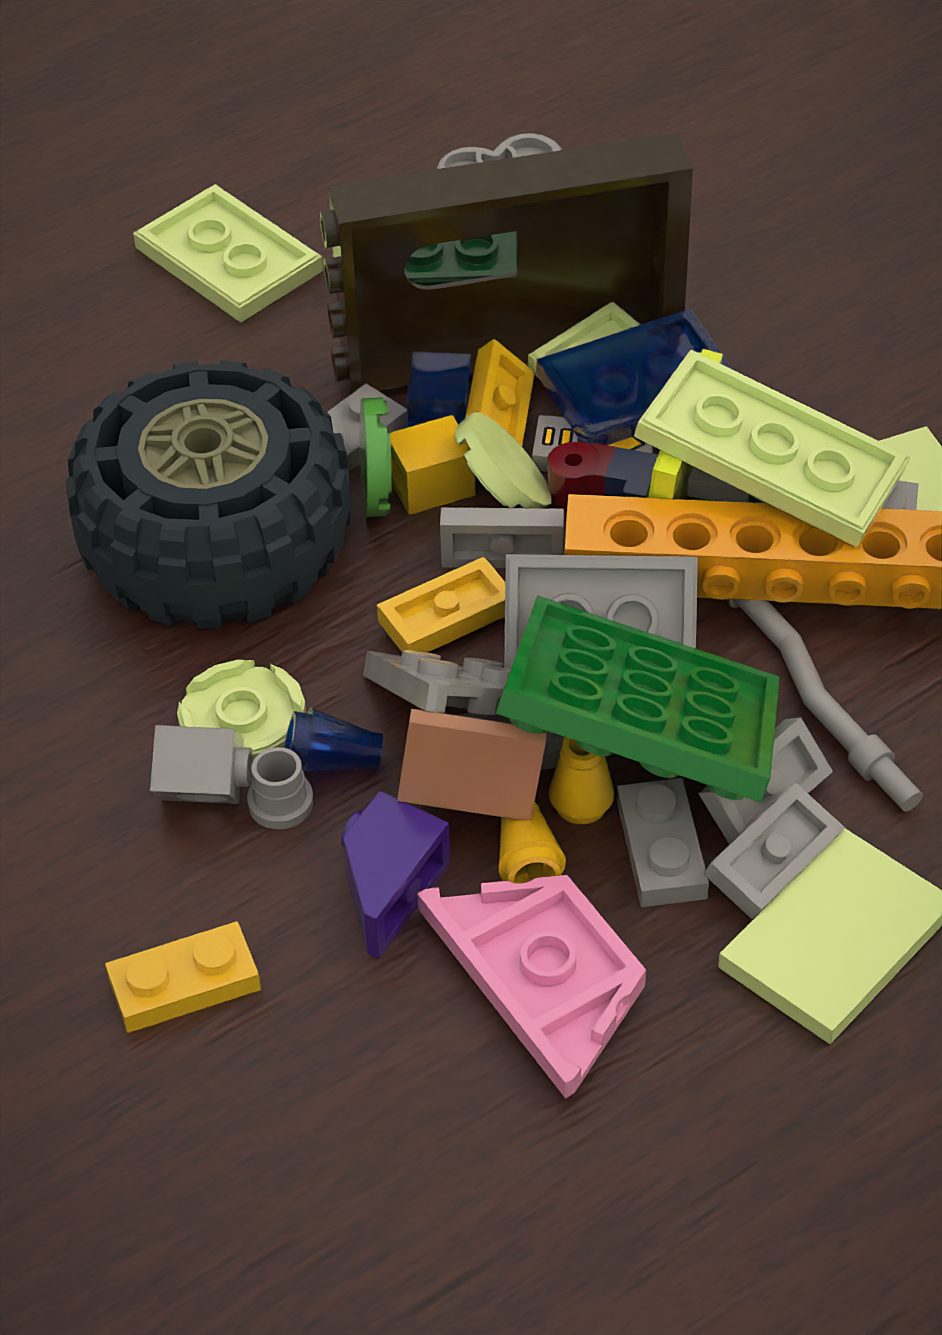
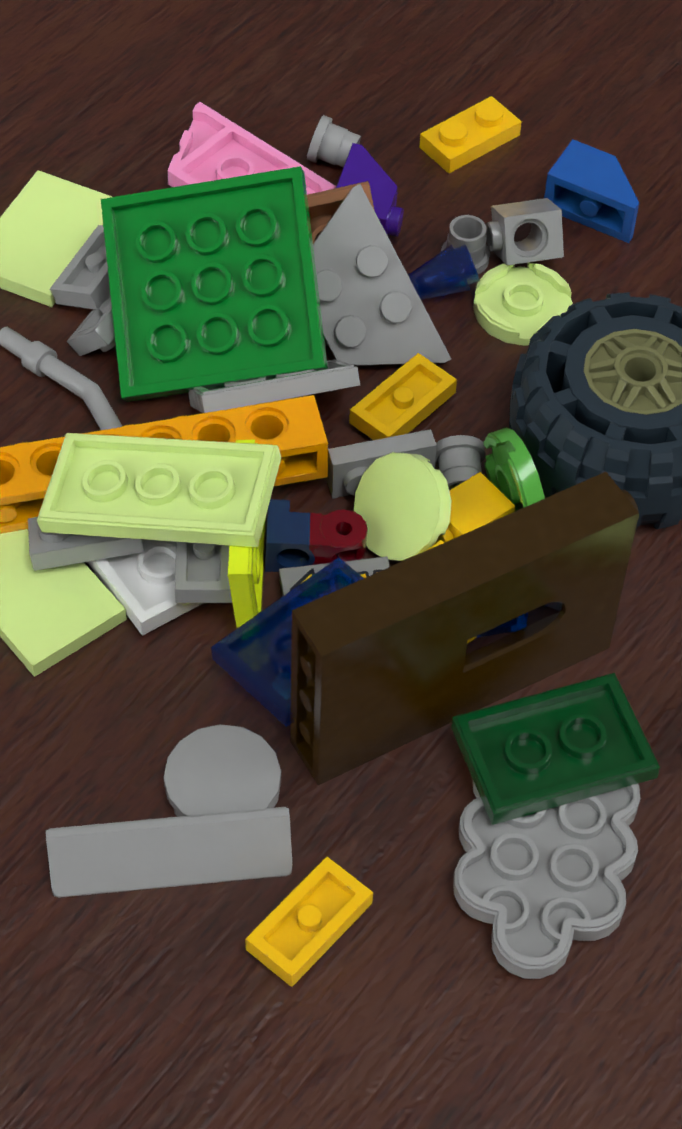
camera: 160 degrees right, 5 degrees up
(77, 826) = (593, 191): none -> blue slope
(393, 979) = (331, 143): none -> light grey piece
(414, 526) = (459, 458): none -> light grey piece
(726, 197) = (309, 921): none -> yellow plate
(758, 317) = (222, 772): none -> light grey tile
(820, 268) = (169, 852): none -> light grey slope

